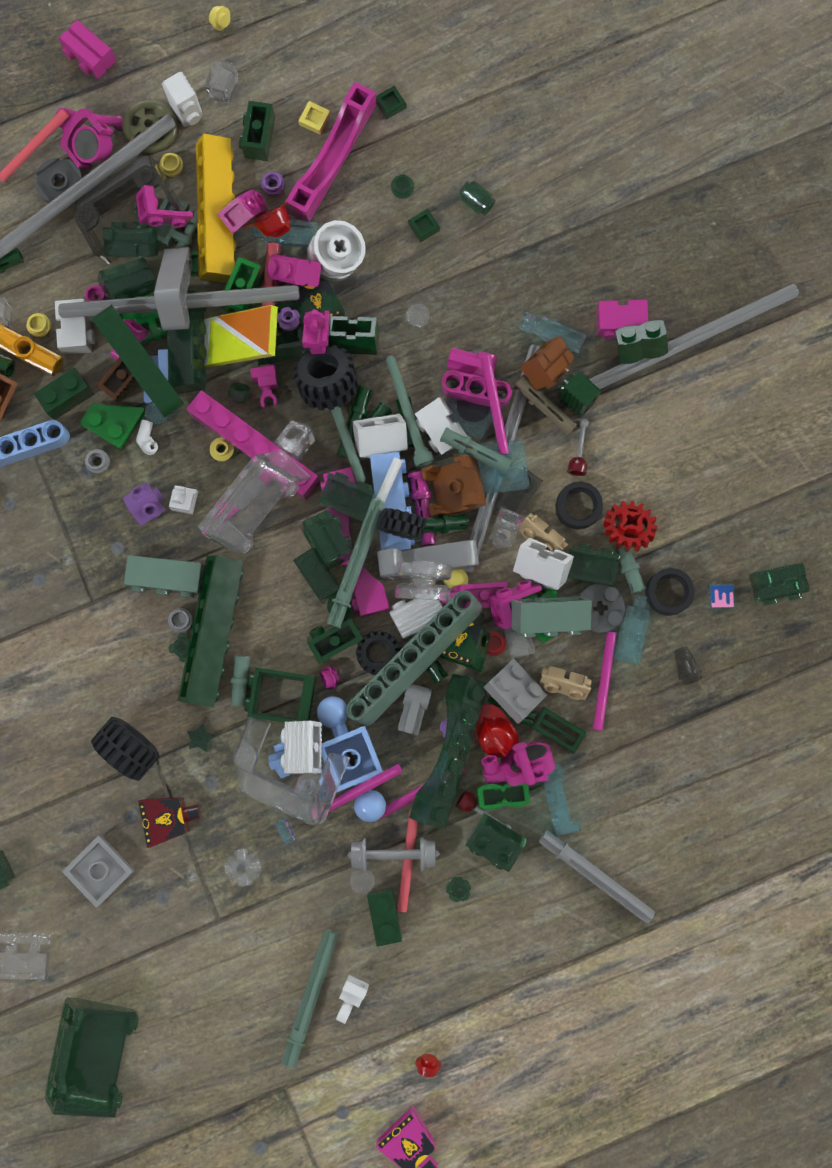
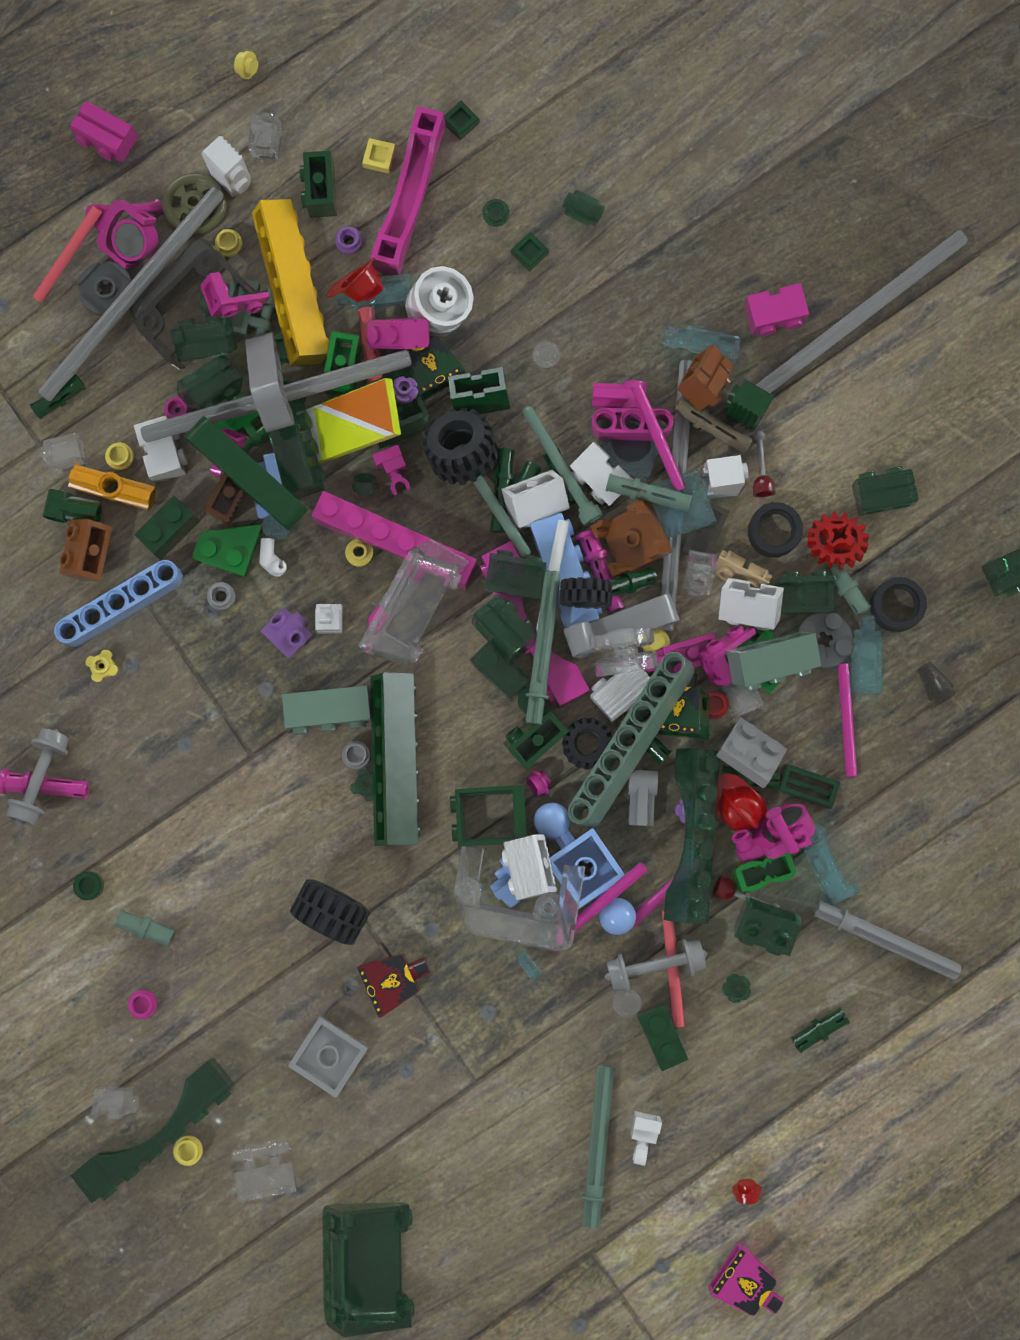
camera: 10 degrees left, 0 degrees up
(200, 738) = (408, 882): clear green piece -> none
(240, 681) = (439, 808): sand green pin -> none
(242, 210) = (323, 278): dark pink bracket -> none
(252, 864) = (490, 1004): clear brick -> none
(296, 440) = (441, 523): clear brick -> none
(316, 331) = (439, 396): dark pink hips -> none
(521, 940) = (820, 1030): none -> dark green pin
(544, 451) = (724, 476): none -> white brick
(576, 686) = (817, 732): tan hinge -> none
(641, 341) = (805, 331): dark green brick -> none
(680, 492) = (884, 491): none -> clear green brick
(721, 596) = (956, 597): tile -> none

